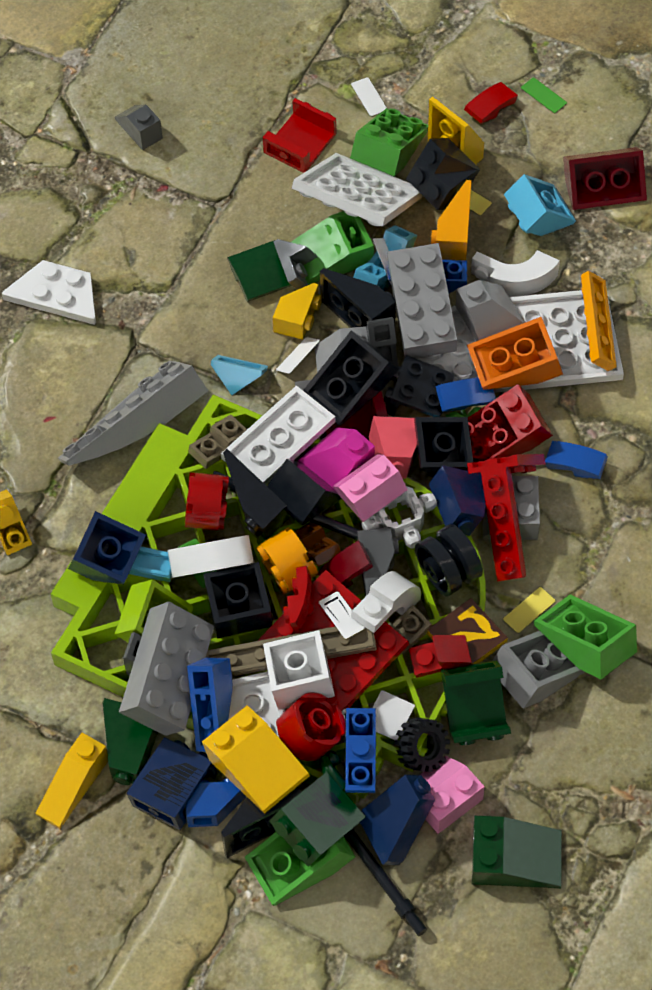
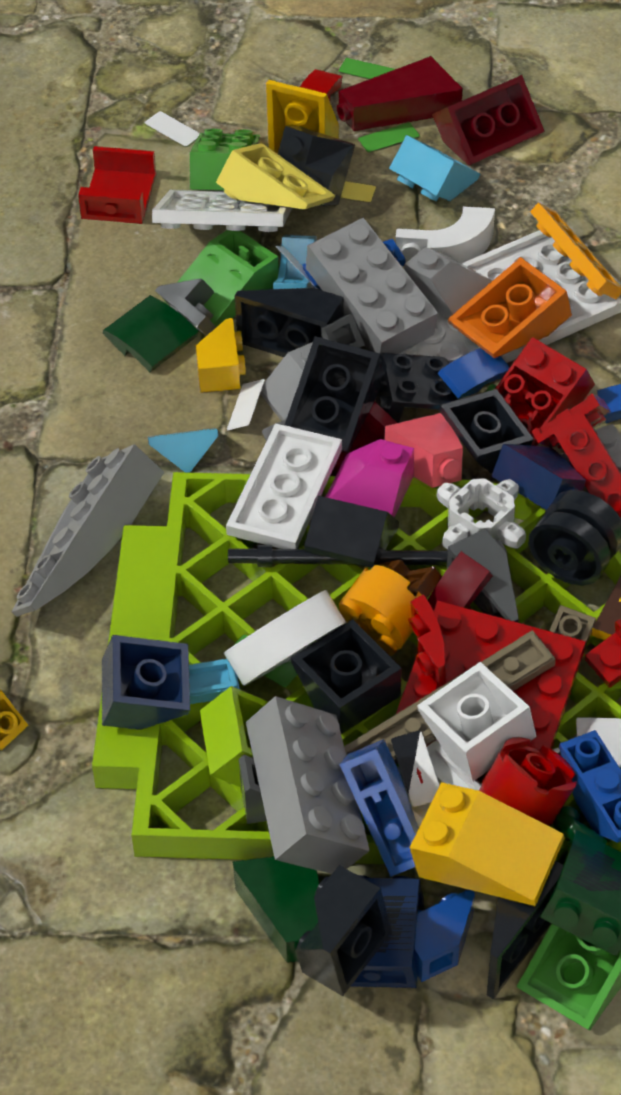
camera: 25 degrees left, 10 degrees down
(72, 779) = (241, 982): yellow slope -> none
(138, 777) = (348, 930): none -> black slope
(206, 501) = (241, 581): red brick -> none
(221, 435) = (209, 522): dark tan slope -> none
(247, 683) = (416, 767): none -> sticker
(261, 506) = (300, 549): black slope -> none
(340, 615) = (491, 639): white sticker -> none
(371, 487) = (438, 489): bright pink slope -> none
(385, 597) = (534, 605): white arch -> none
(400, 181) = (267, 178): none -> light yellow slope
(453, 226) = (362, 201): light orange slope -> none
(526, 162) = (388, 137): none -> bright green sticker
(549, 130) = (399, 96): none -> dark red slope

